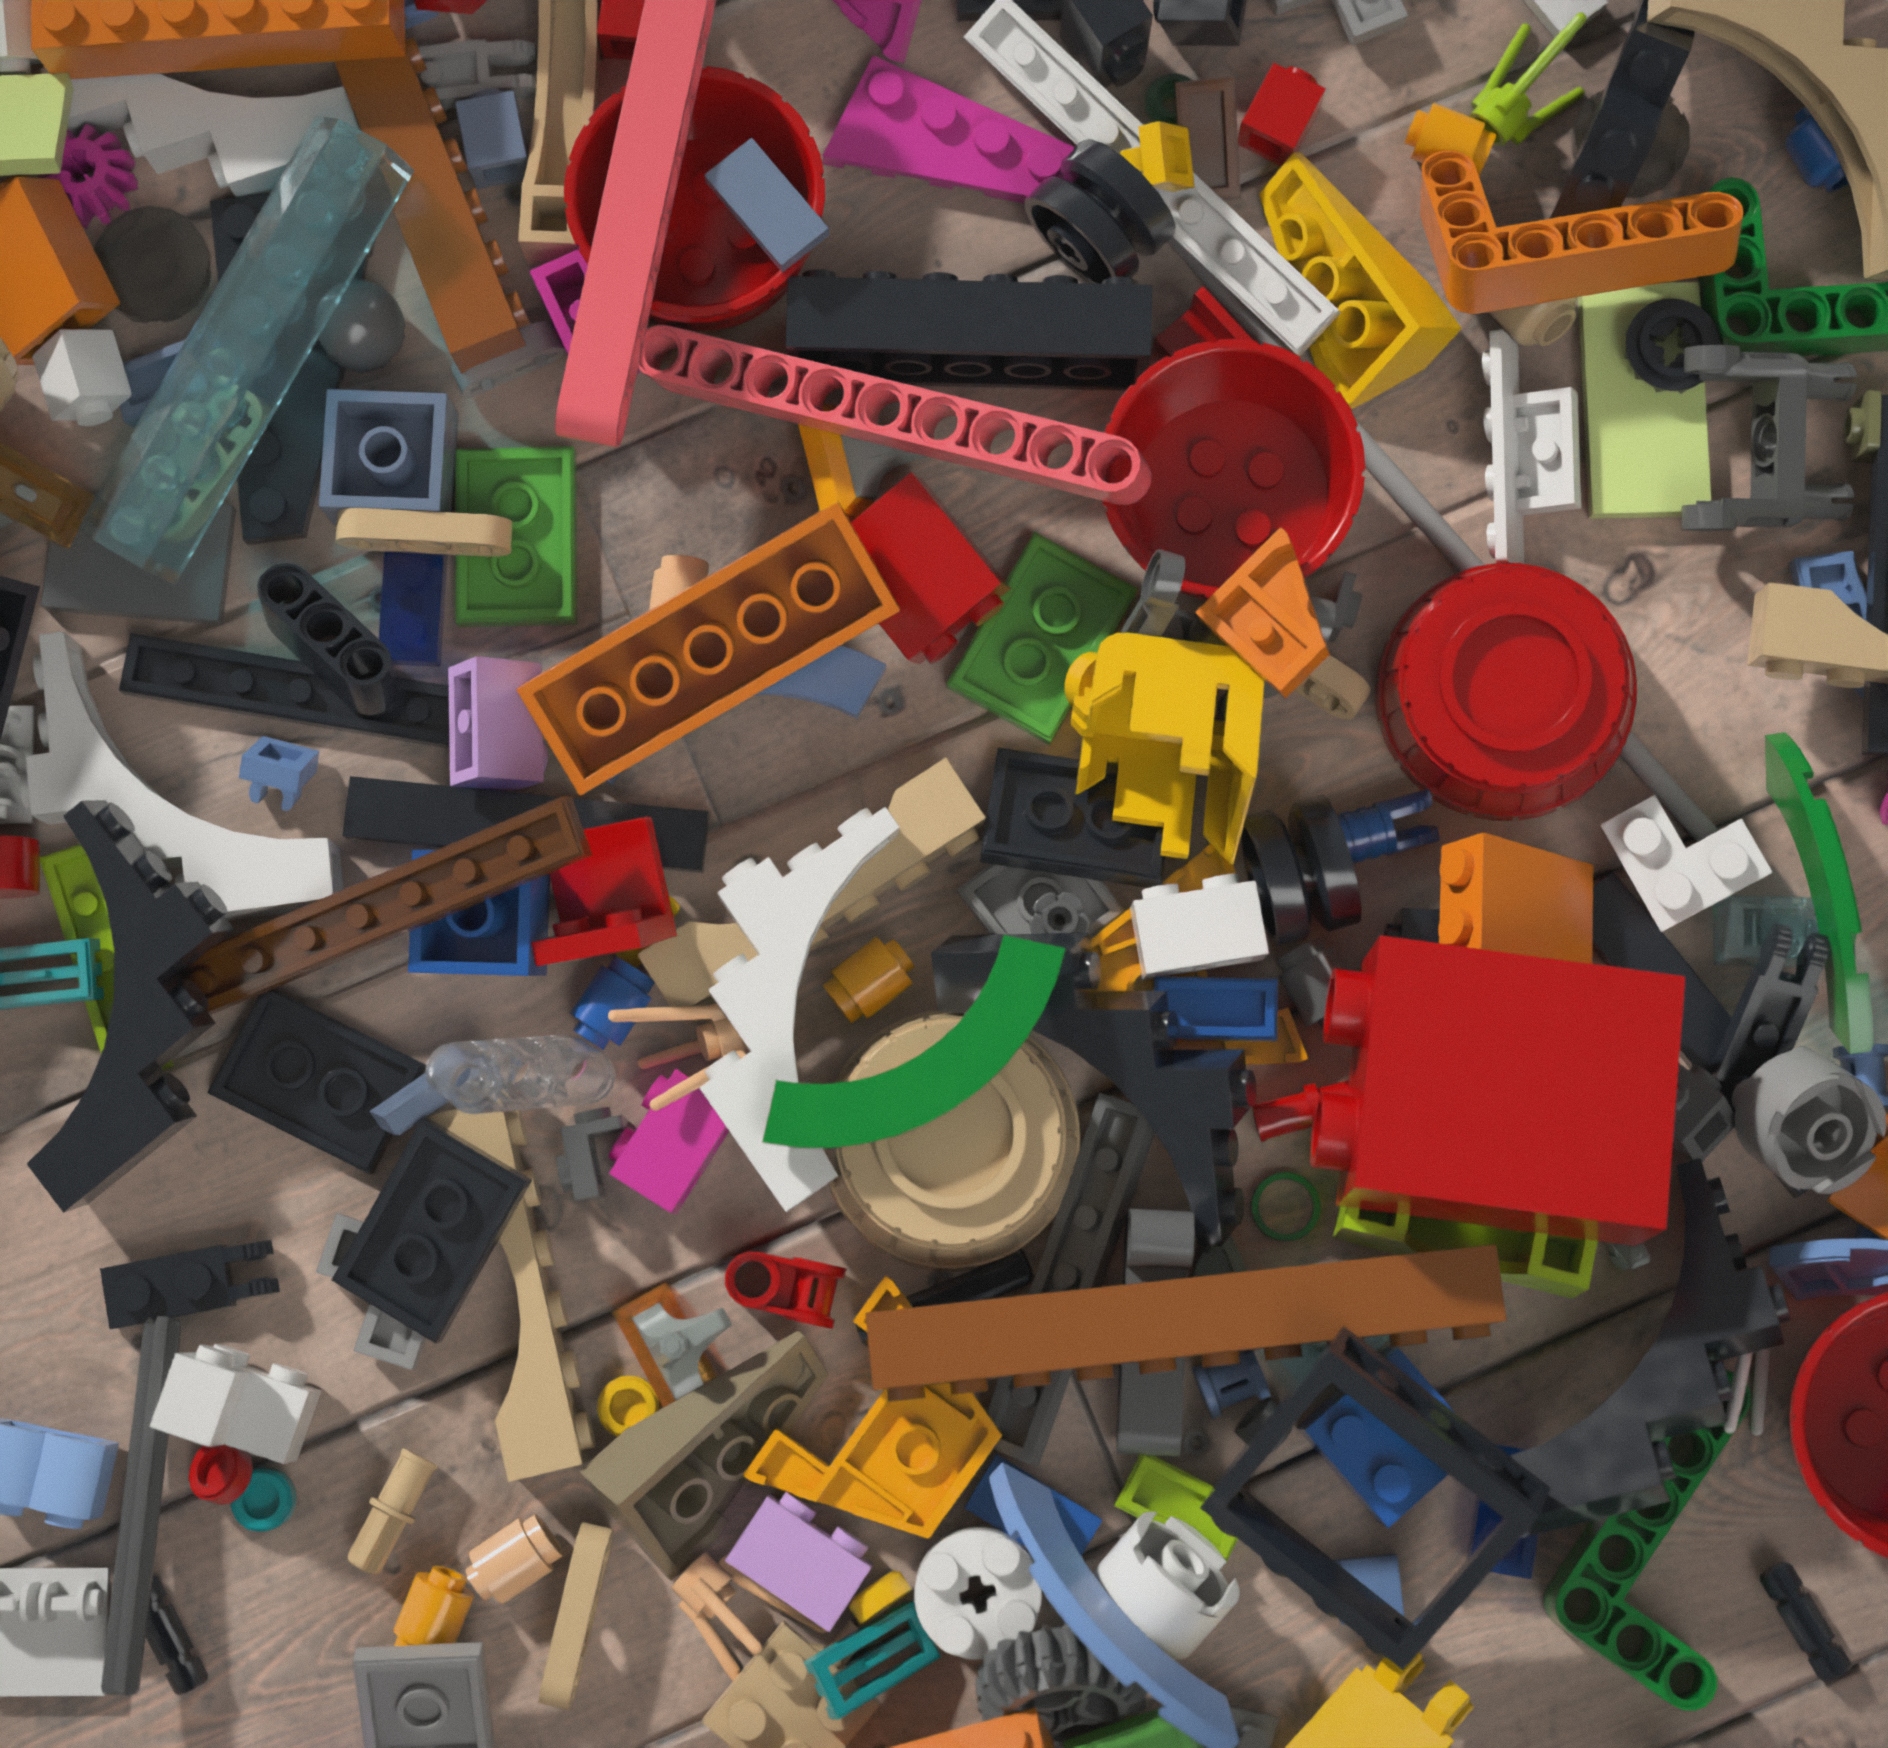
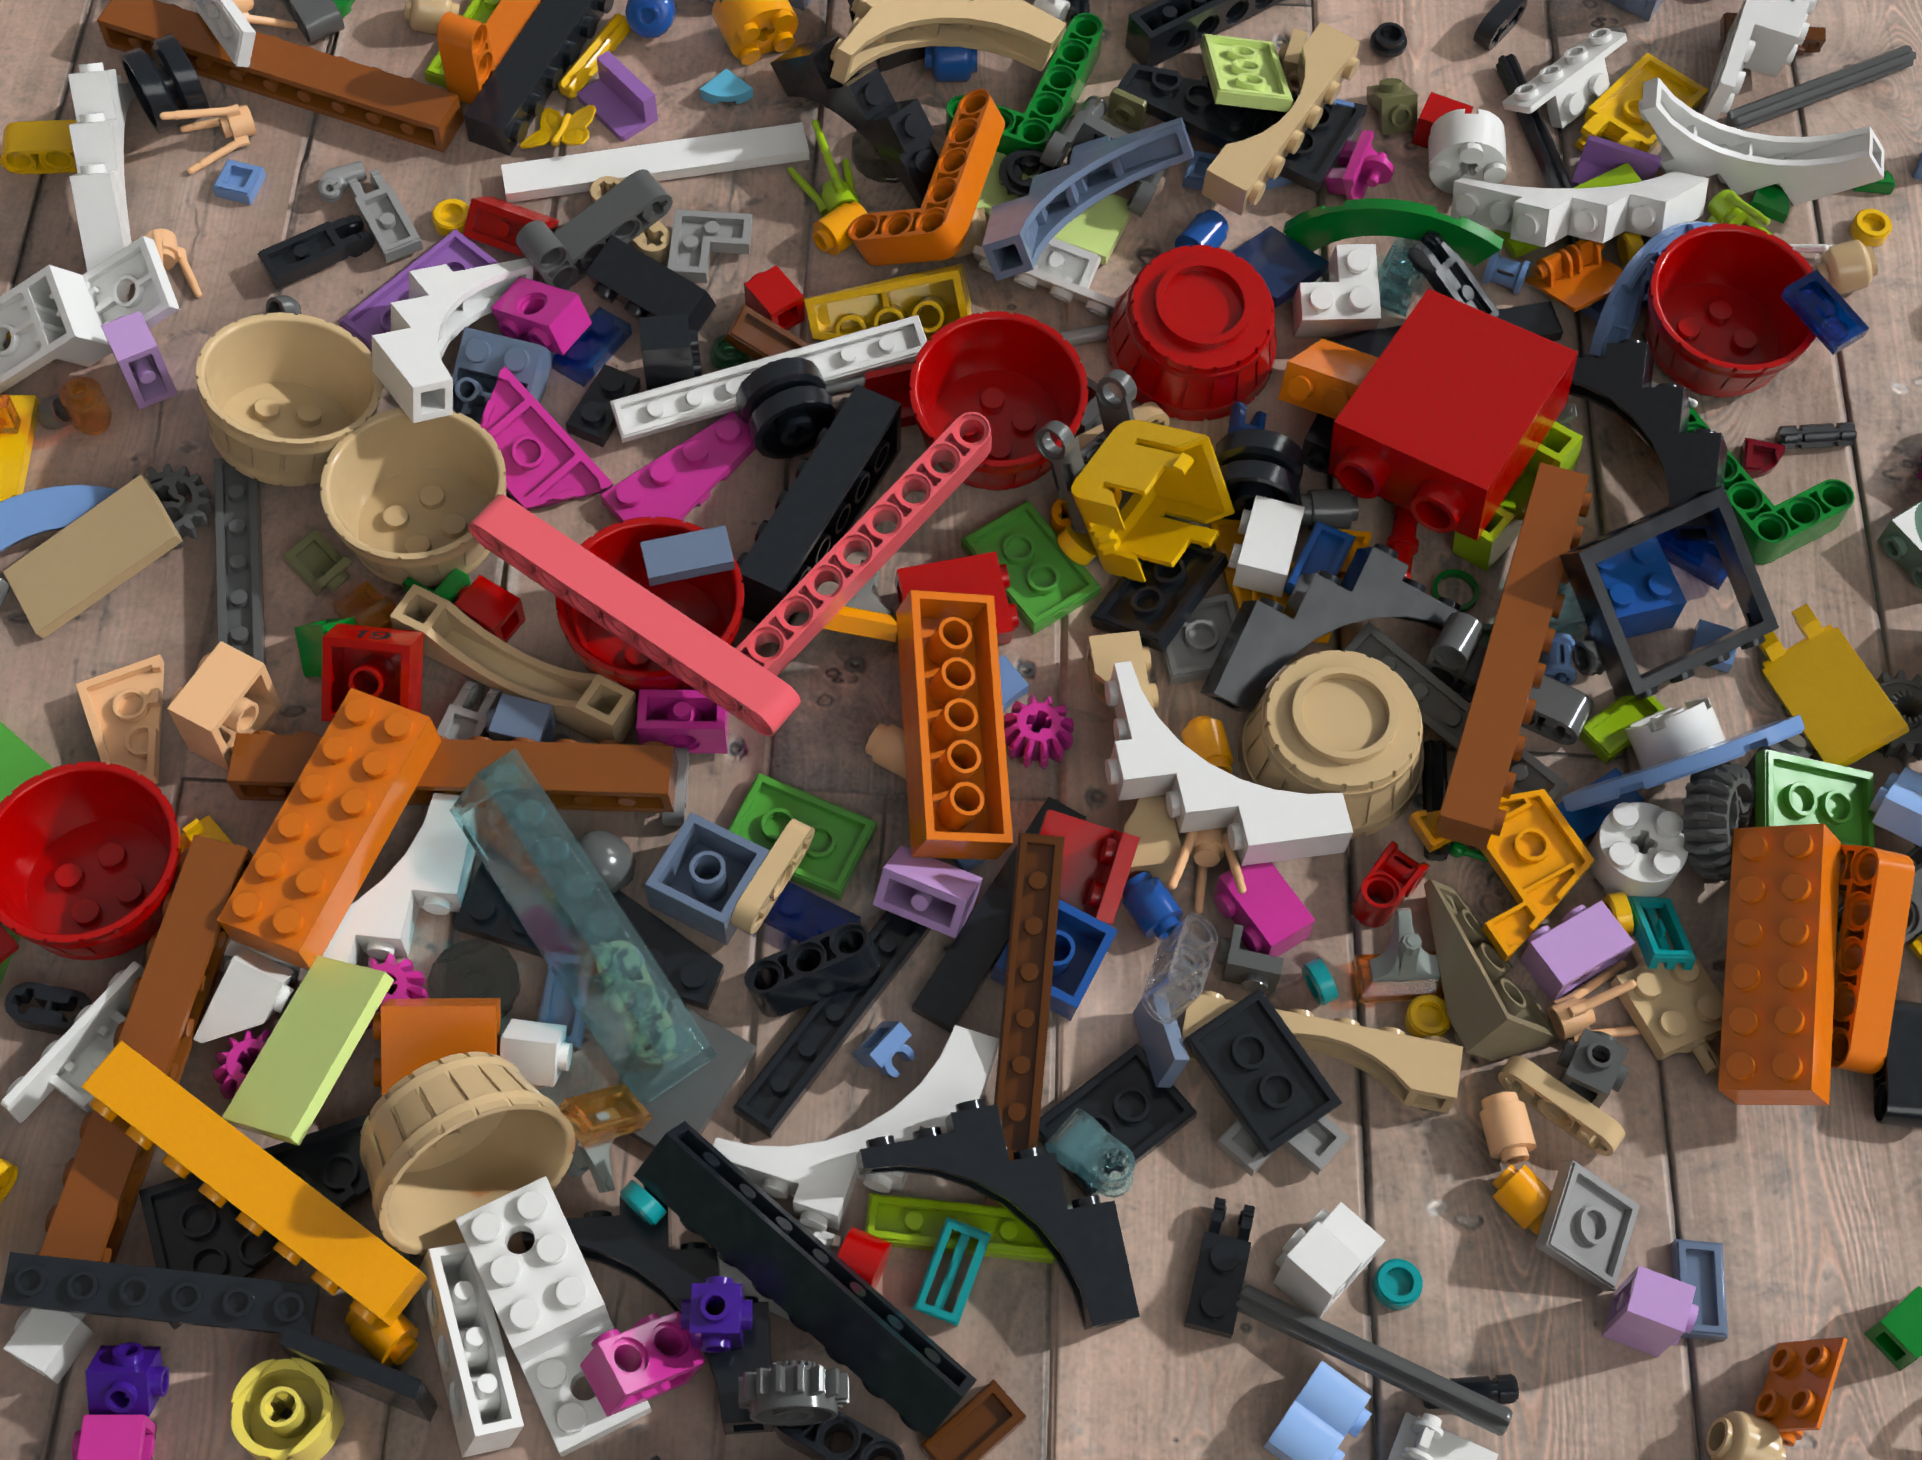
camera: 70 degrees left, 20 degrees down
(220, 1473) = (1368, 1300): red tile -> none
(242, 1066) = (1086, 1150): none -> clear light blue piece
(391, 1512) = (1442, 1196): tan axle -> none
(606, 1252) = (1319, 981): none -> teal tile
(618, 1650) = (1593, 1065): none -> dark grey brick
(773, 769) = (1051, 740): none -> dark pink gear
(934, 1080) = (1309, 702): green tile -> none
(1065, 904) = (1213, 630): dark grey plate -> none
(1163, 156) = (772, 350): yellow tile -> none
(1269, 616) = (1107, 400): orange wing -> none
(1636, 402) = (1097, 168): none -> sand blue arch
(1693, 628) = (1204, 229): none -> blue brick
(1696, 747) = (1282, 263): none -> dark blue tile
(1724, 1551) = (1760, 457): none -> dark red tile
(1809, 1121) = (1528, 289): light grey brick -> none

